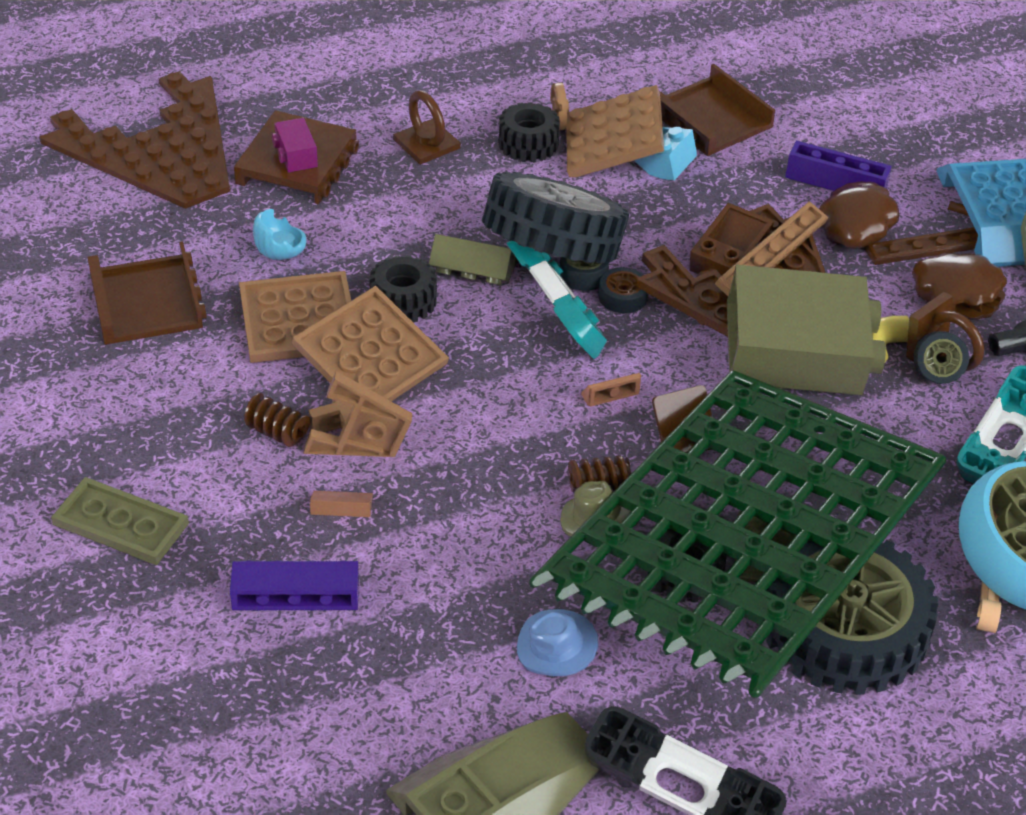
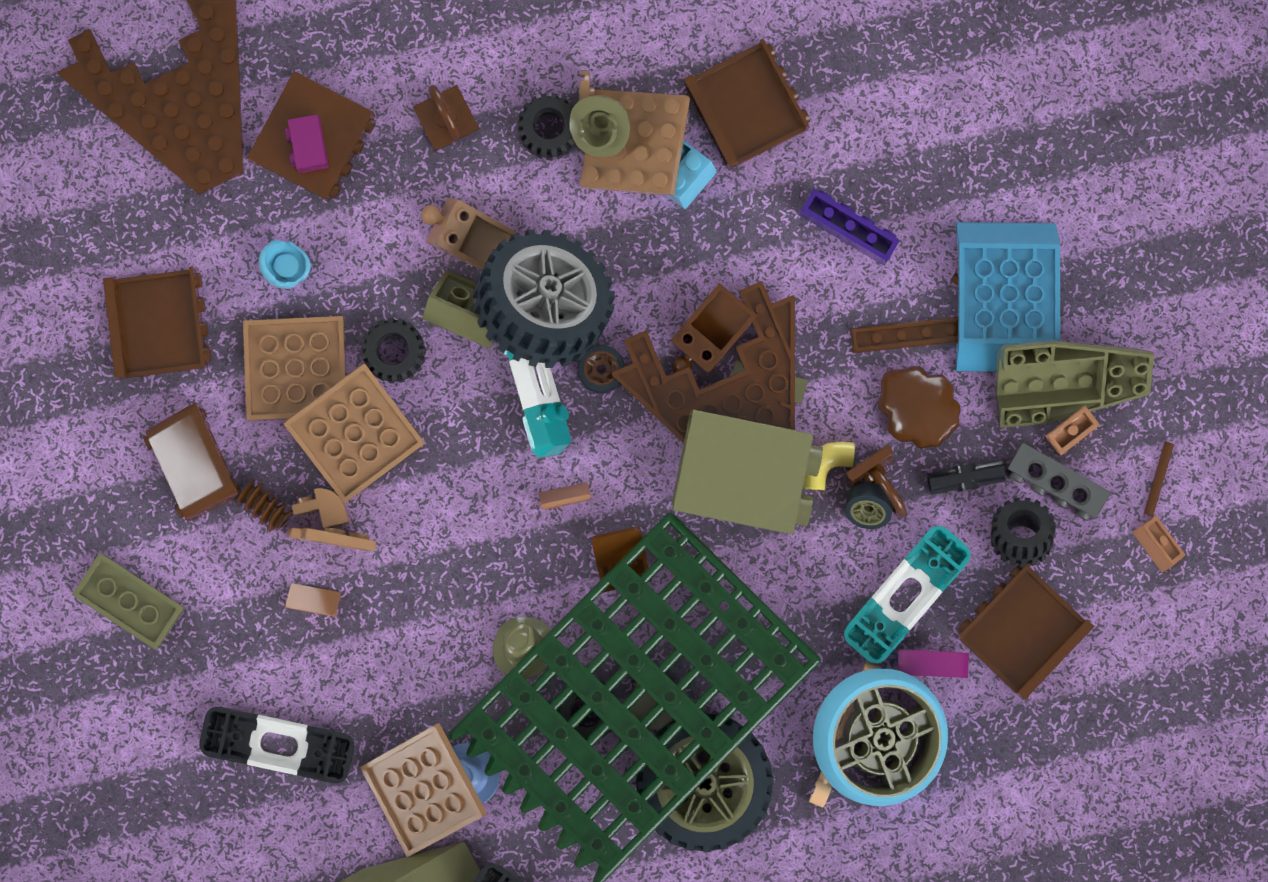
camera: 10 degrees right, 40 degrees up
(195, 388) = (192, 462): none -> windscreen
(266, 629) = (238, 734): none -> black piece
(294, 585) = (264, 695): dark purple brick -> none
(456, 205) = (472, 234): none -> medium nougat slope
(507, 648) = (423, 790): none -> medium nougat plate
(580, 106) = (599, 125): none -> olive hat
(611, 472) = (534, 605): reddish brown piece -> none
(779, 243) = (748, 352): medium nougat tile -> none
(859, 214) = (850, 296): reddish brown piece -> none

